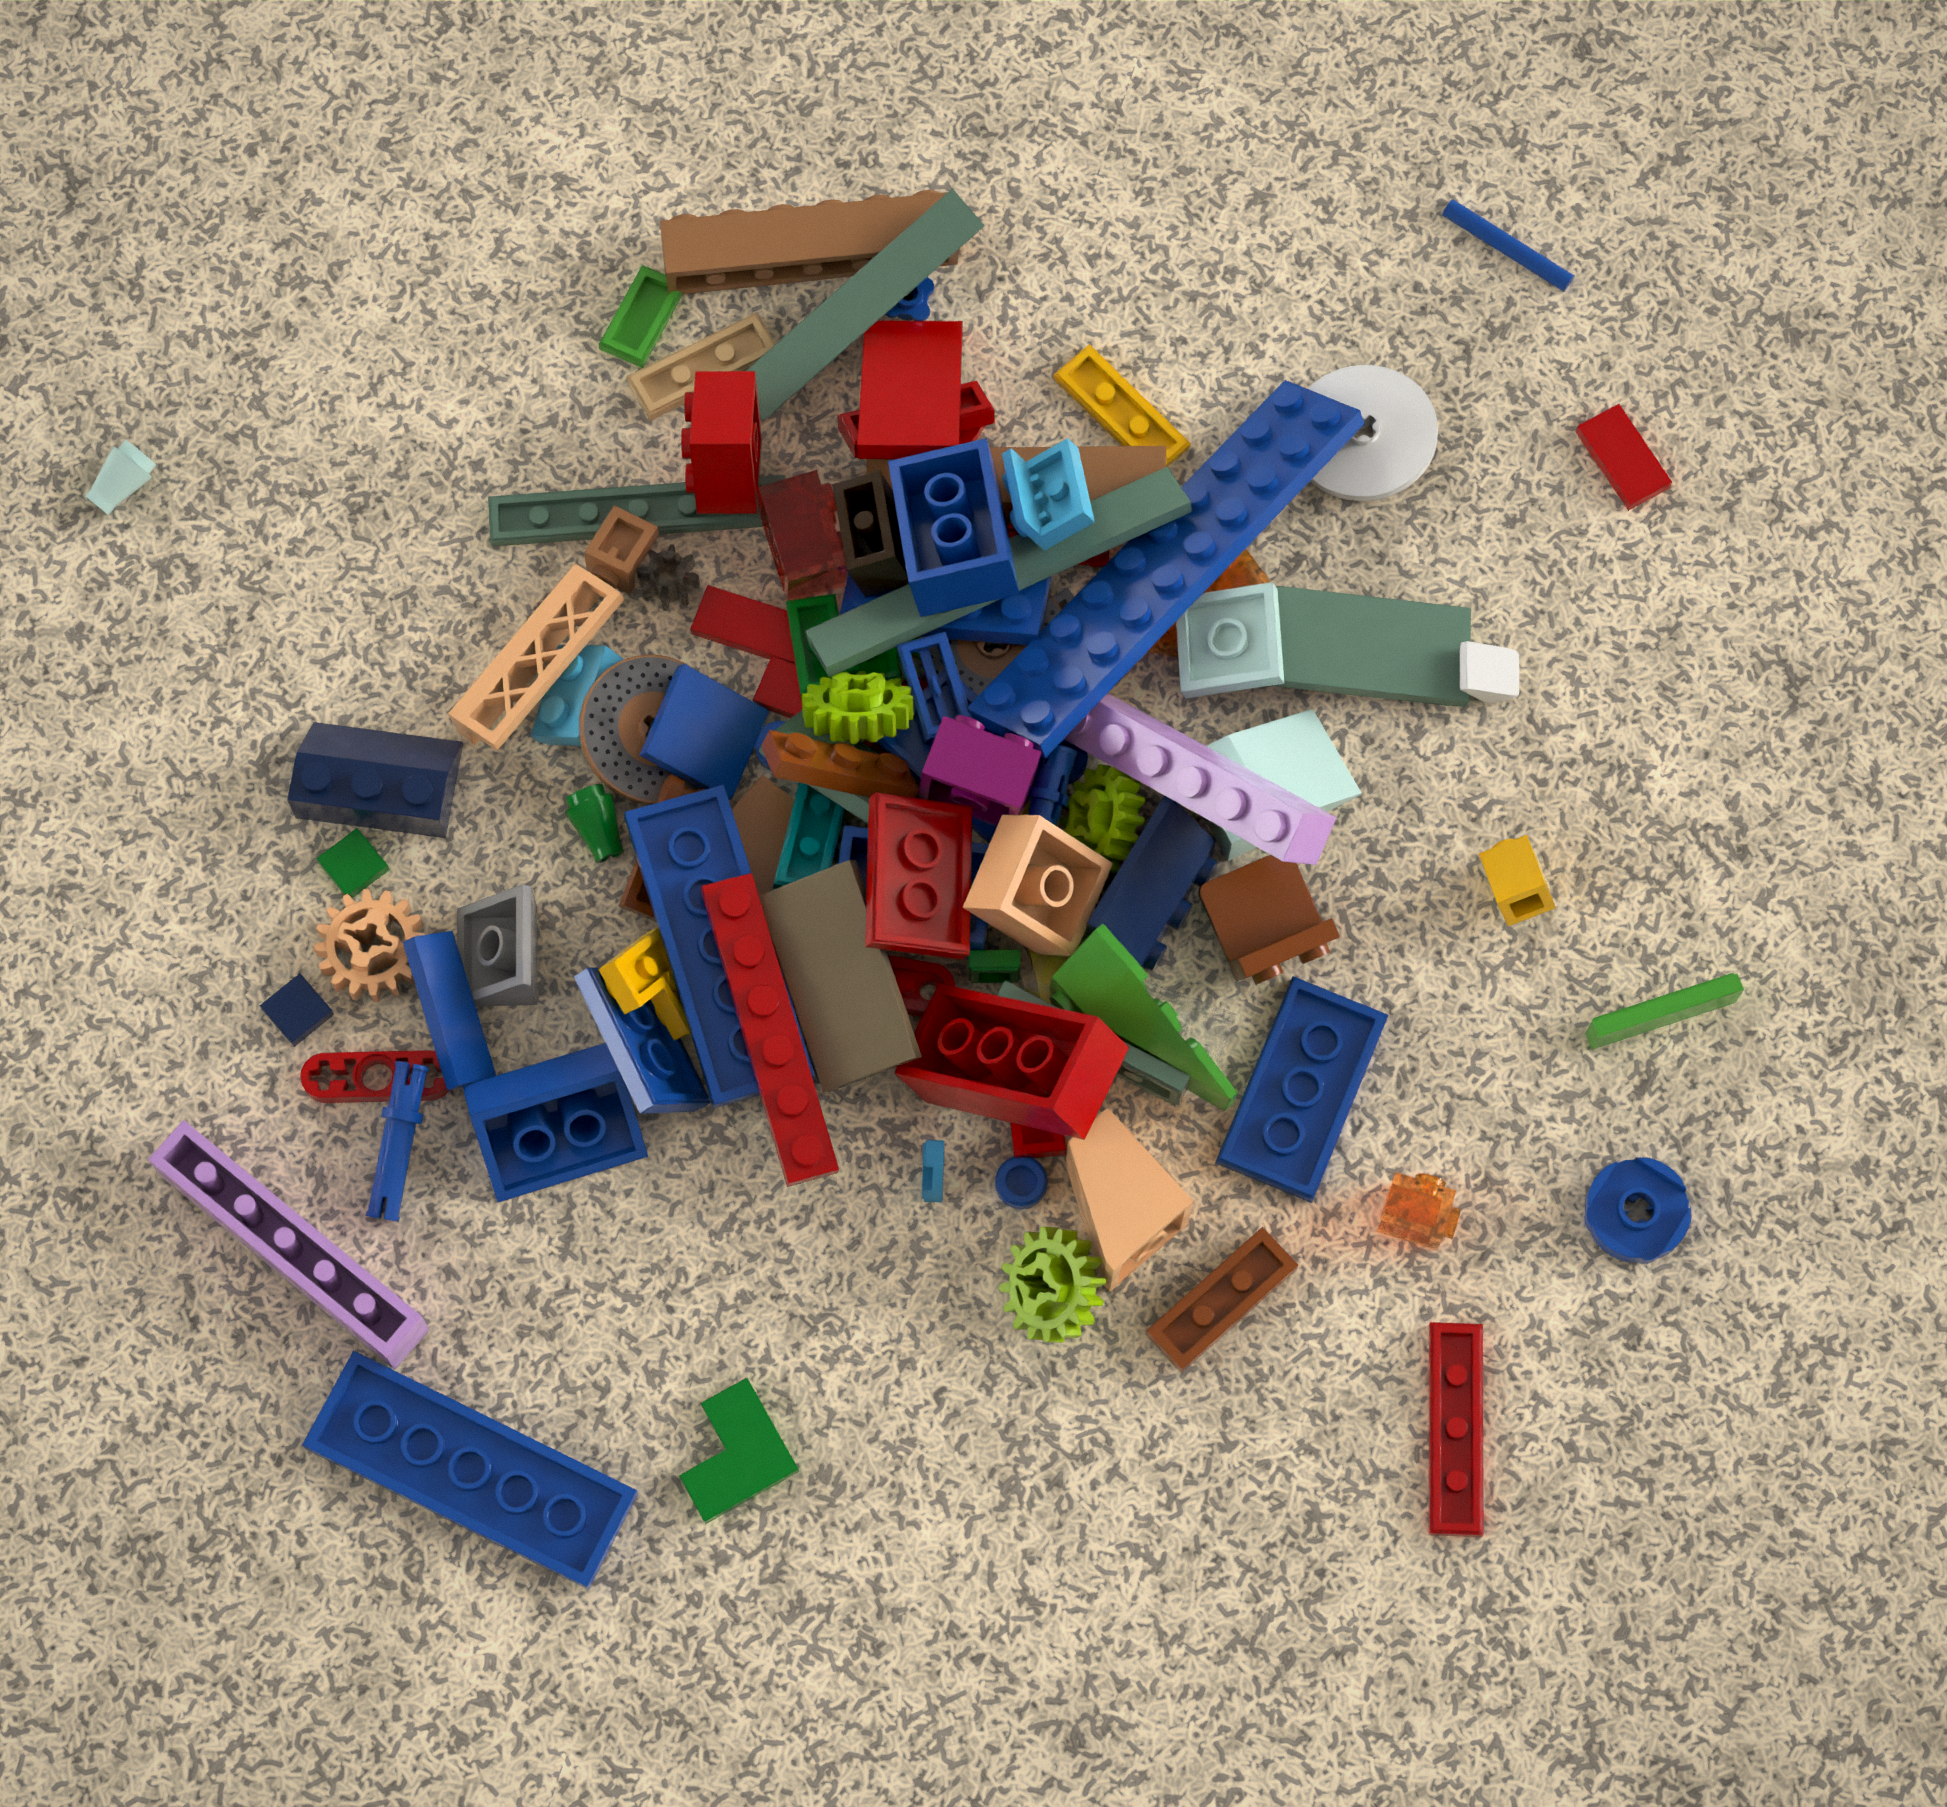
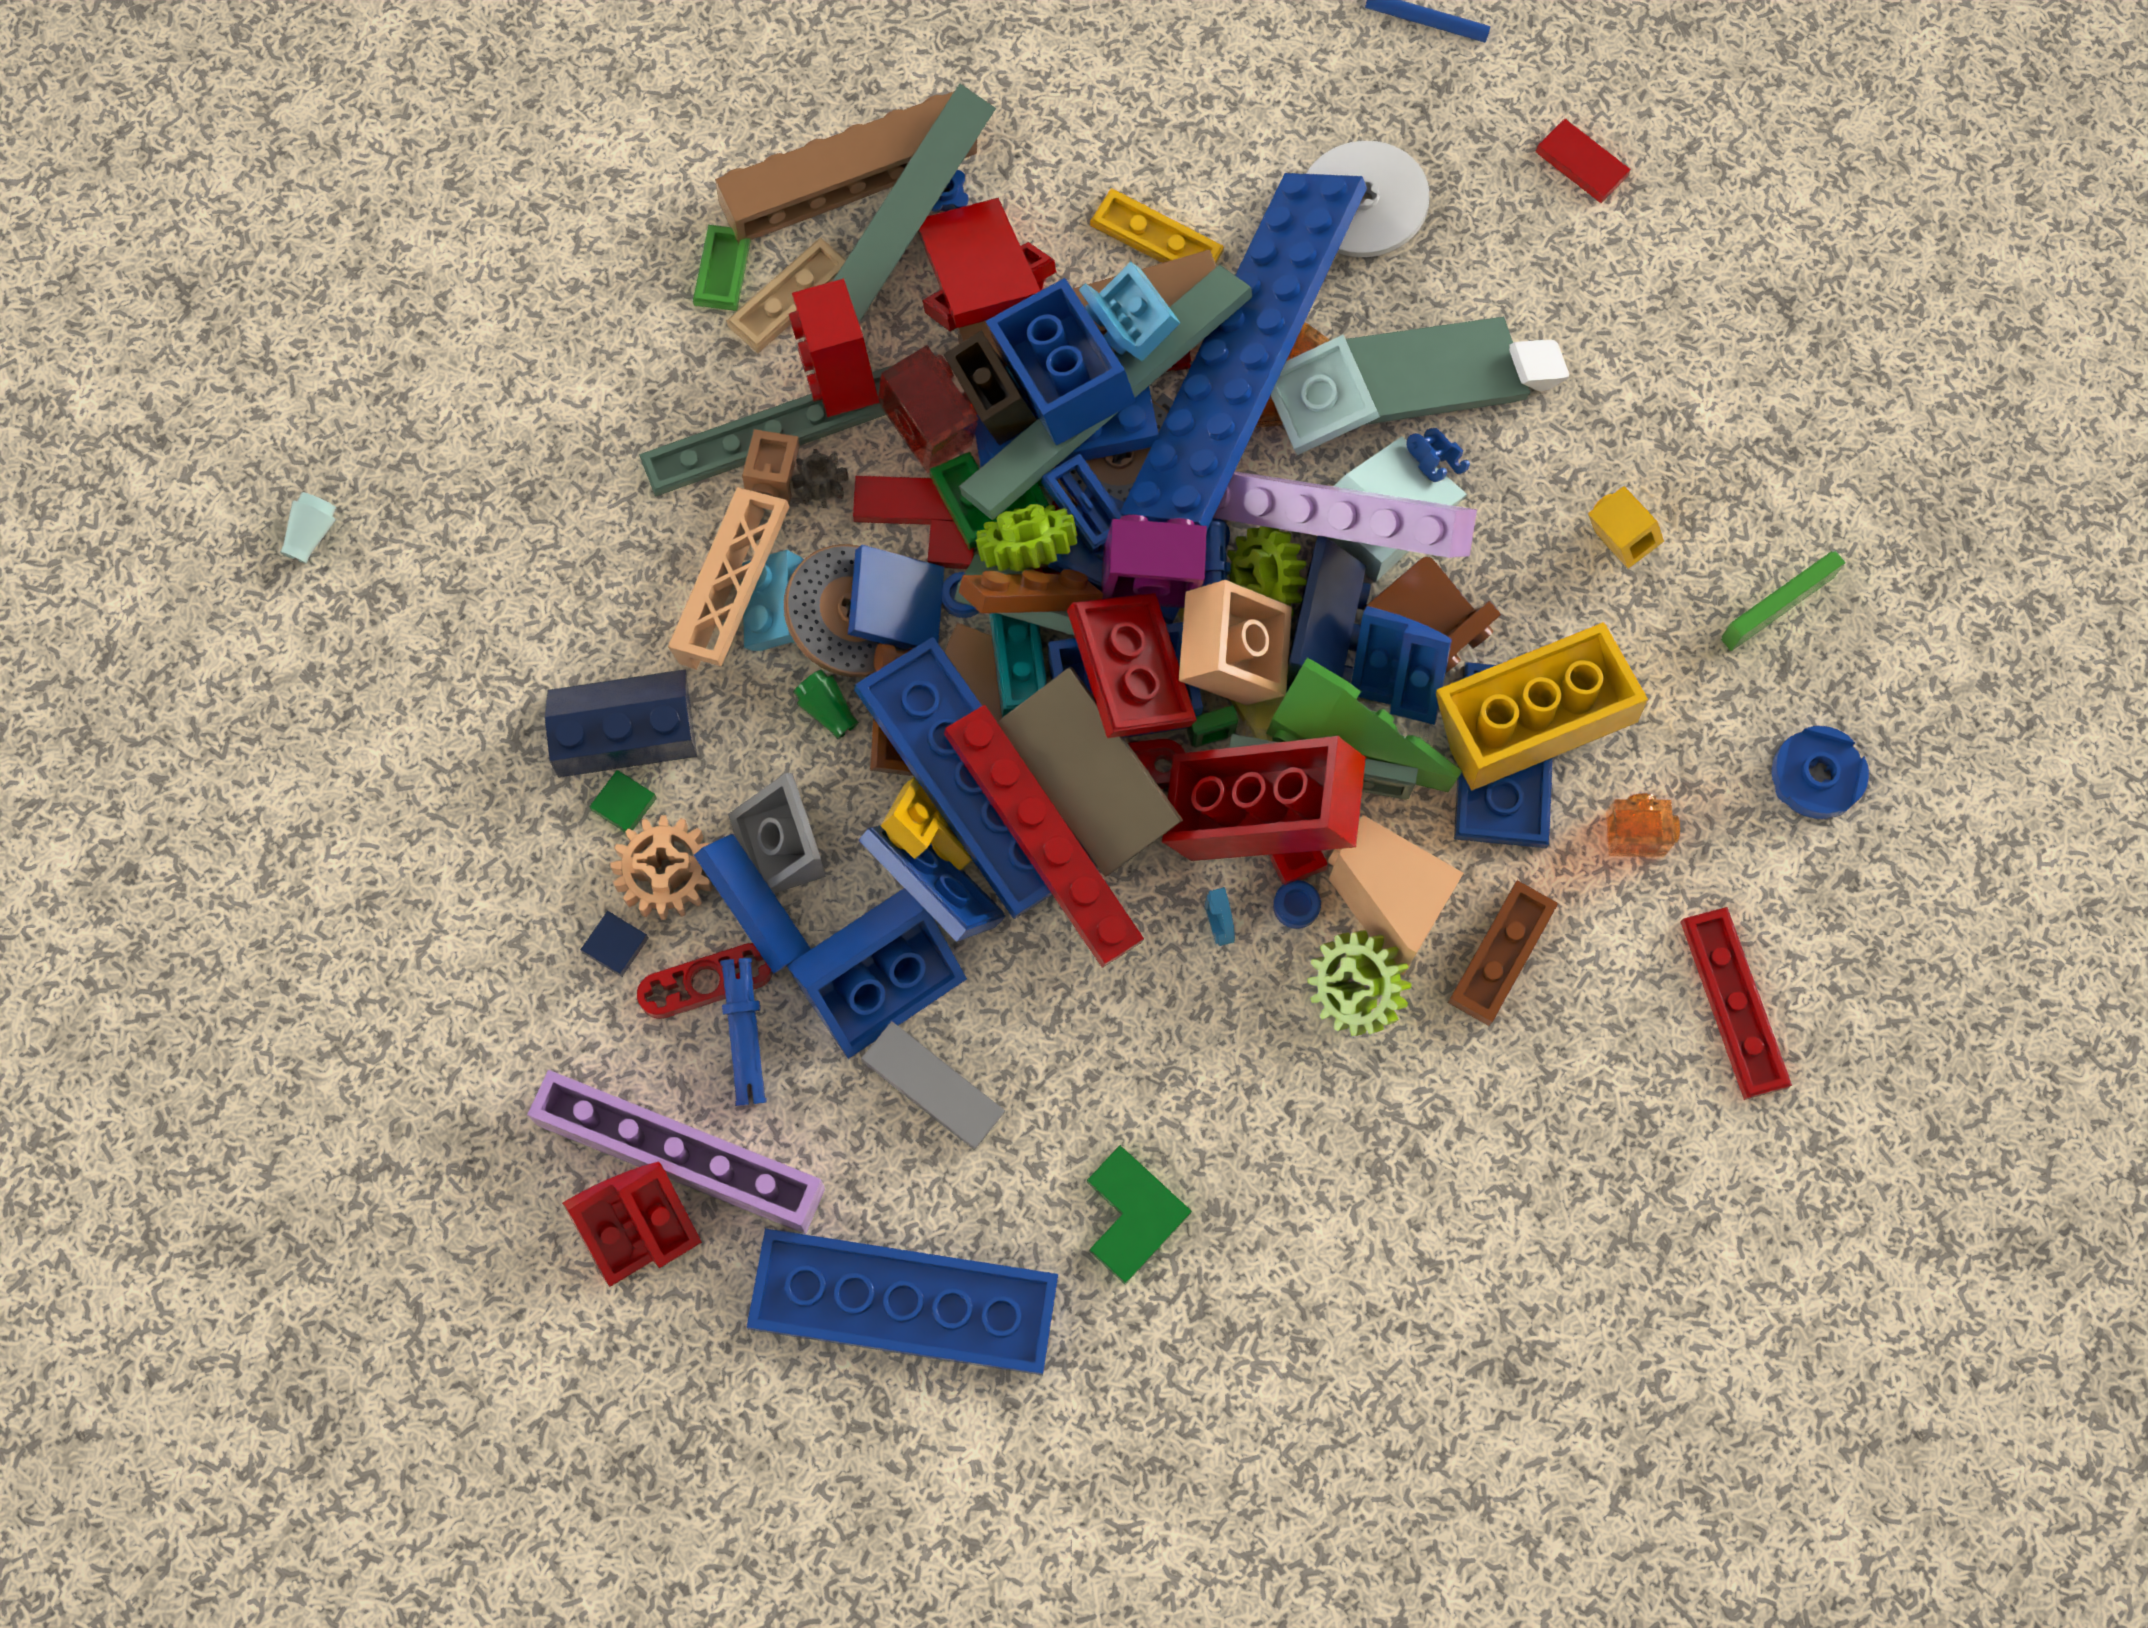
camera: 20 degrees left, 0 degrees up
(220, 1302) = (632, 1222): none -> red slope
(574, 1256) = (932, 1085): none -> light grey tile
(1212, 959) = (1400, 664): none -> blue slope
(1328, 740) = (1433, 449): none -> blue piece
(1346, 1047) = (1539, 705): none -> yellow slope

